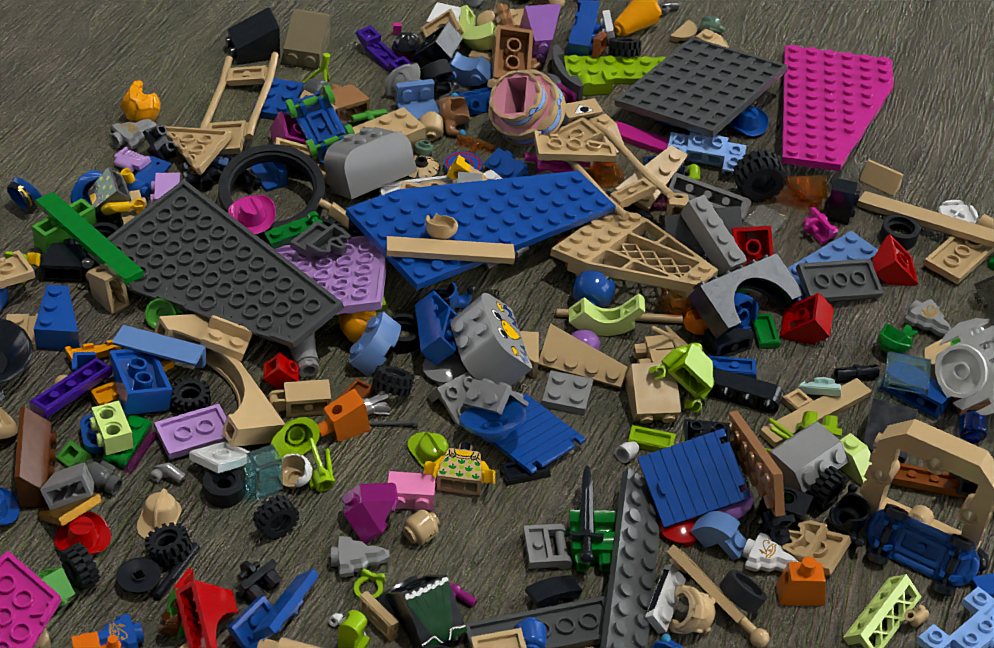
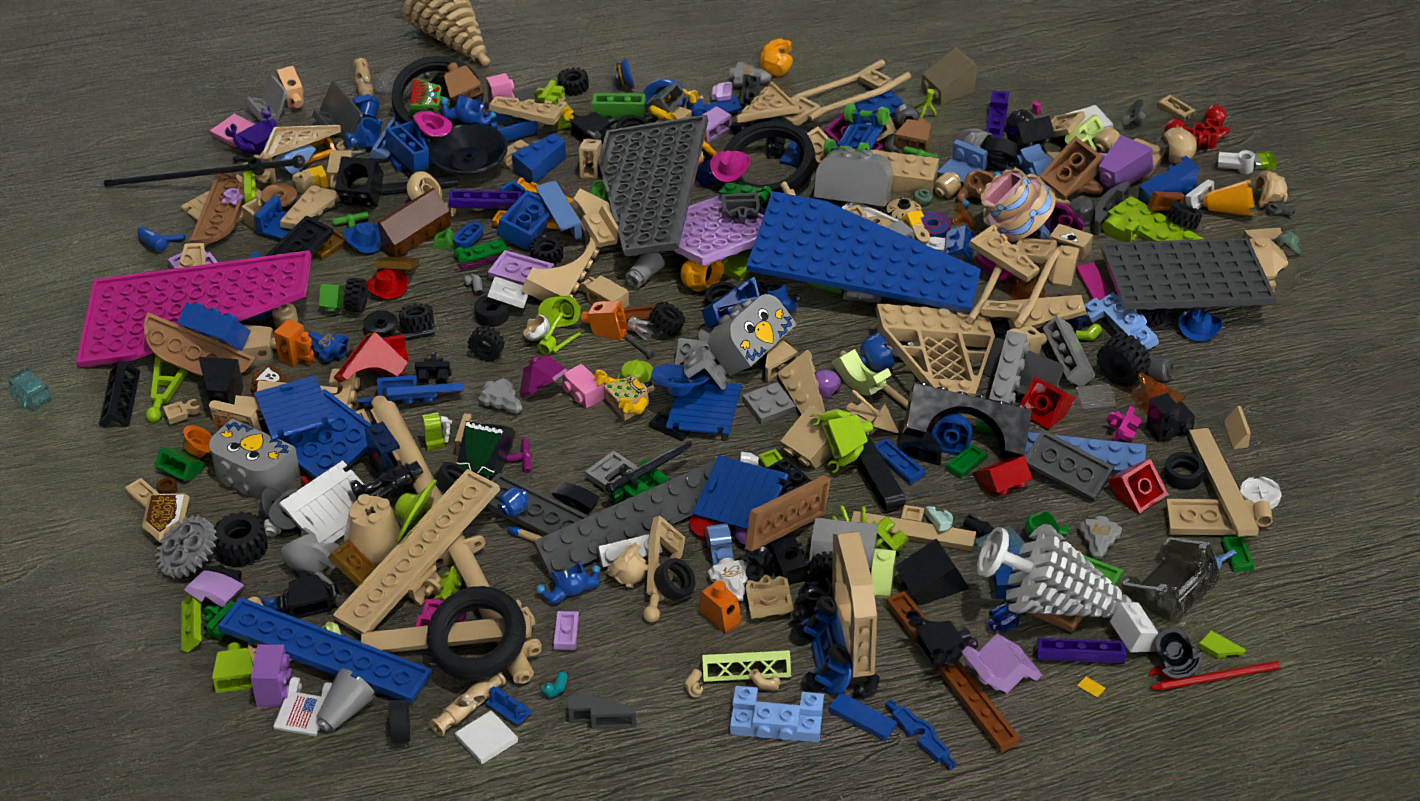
camera: 55 degrees right, 0 degrees up
(72, 485) = (415, 249): light grey torso -> none
(90, 238) = (607, 118): green tile -> none
(104, 477) = (439, 259): dark grey piece -> none
(111, 428) = (473, 235): yellowish green brick -> none
(158, 509) = (442, 299): tan piece -> none
(254, 38) = (915, 56): black slope -> none
(264, 472) = (514, 314): clear light blue brick -> none
(280, 370) = (612, 269): red brick -> none
(367, 575) = (493, 412): lime piece -> none
(376, 340) = (686, 288): medium blue brick -> none
(421, 527) = (557, 408): tan head -> none
(441, 226) = (806, 238): tan hair -> none
(450, 250) = (795, 257): tan tile -> none
(503, 15) = (1108, 139): medium nougat rock -> none
(829, 103) = (1296, 345): dark pink wing -> none

